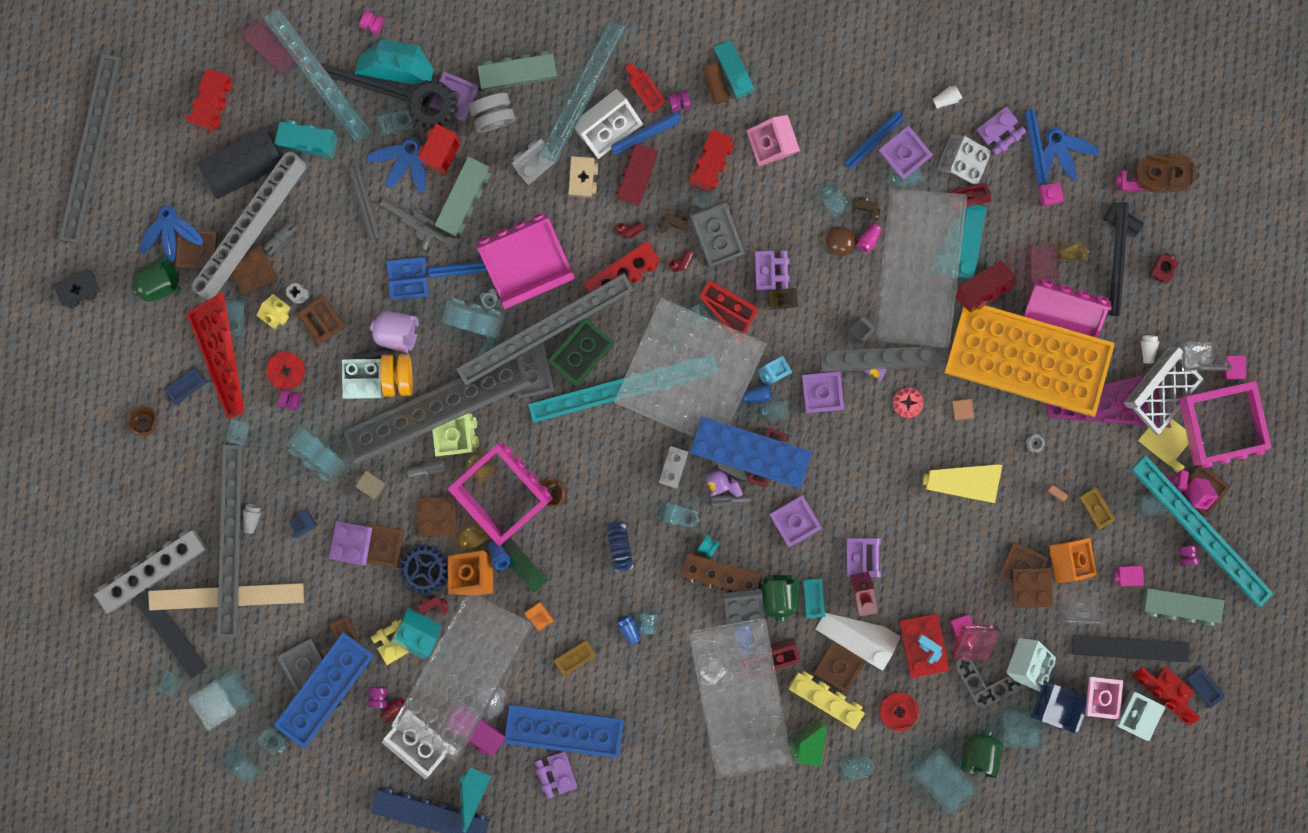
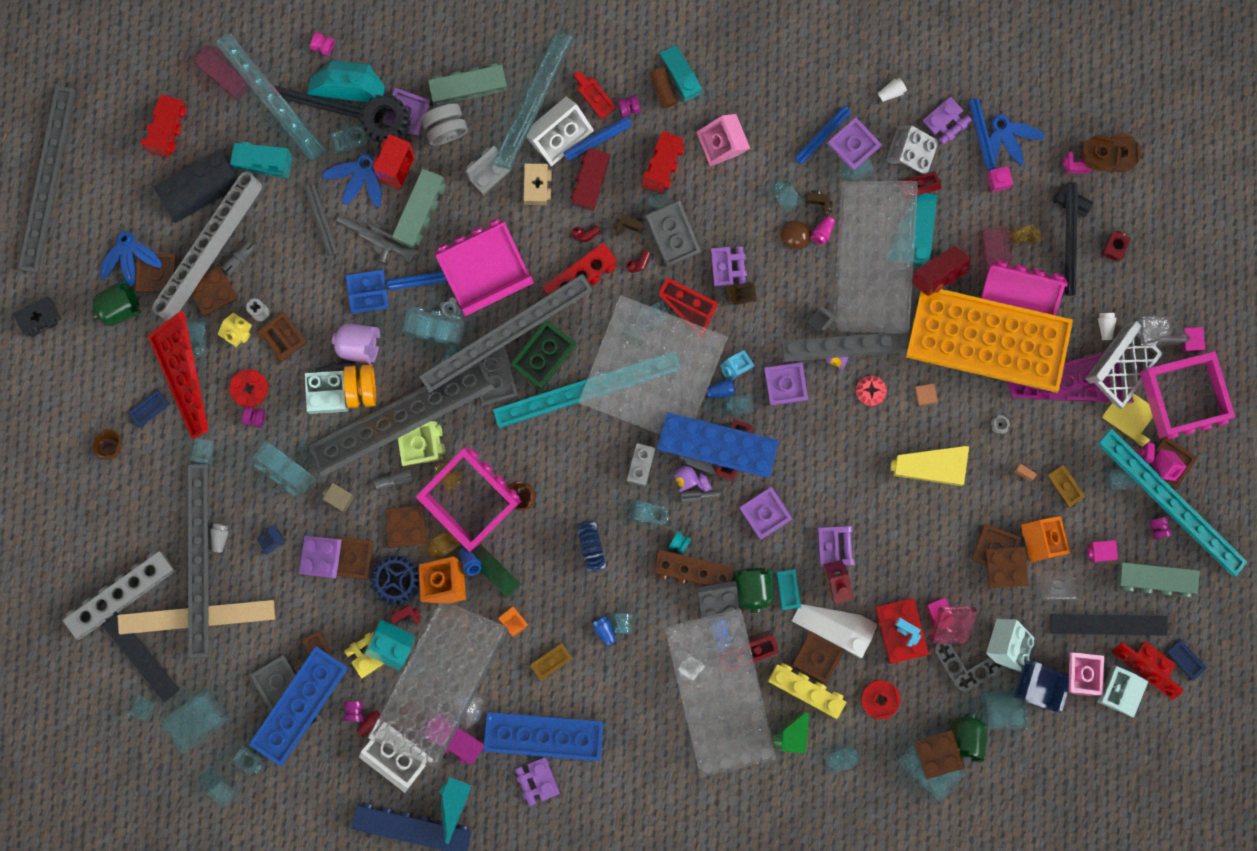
camera: 10 degrees left, 5 degrees down
(953, 770) = (939, 754): none -> reddish brown plate

